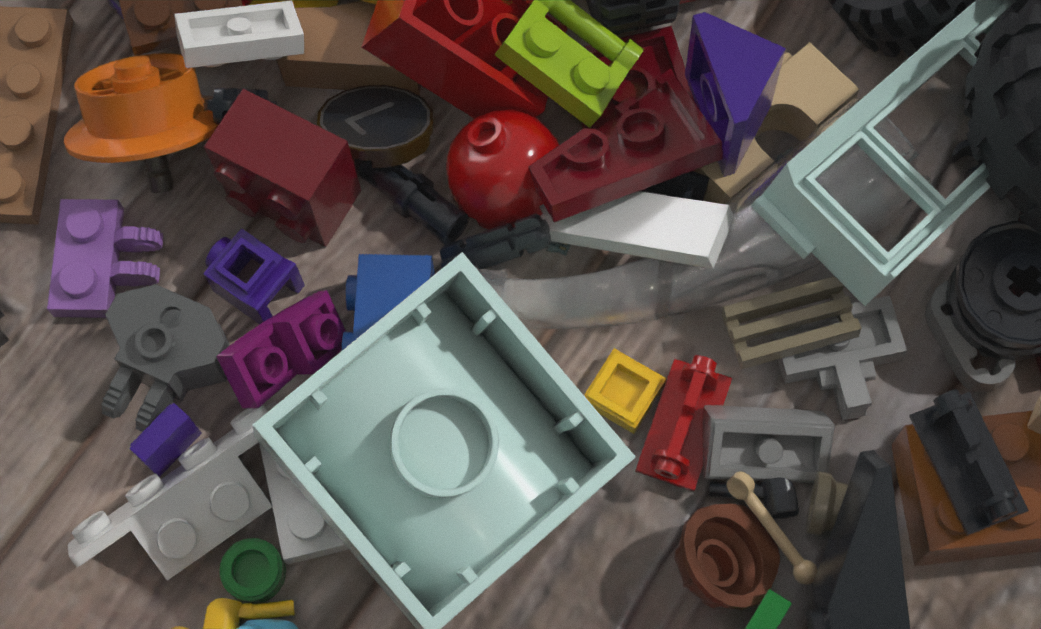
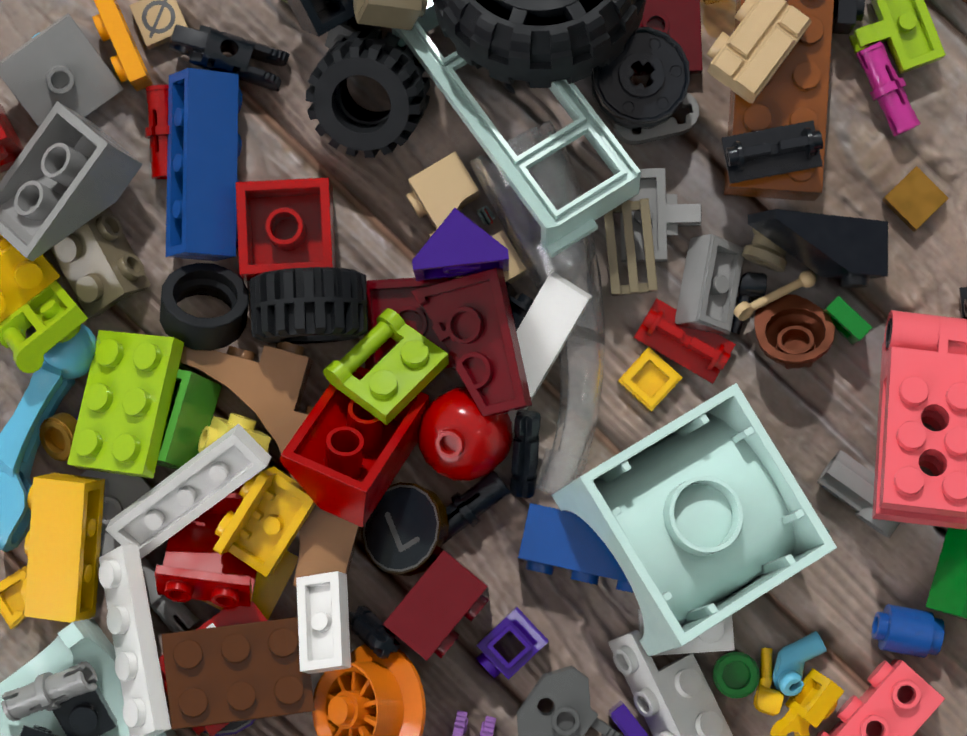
camera: 80 degrees left, 15 degrees up
(281, 347) = (571, 619): magenta slope -> none

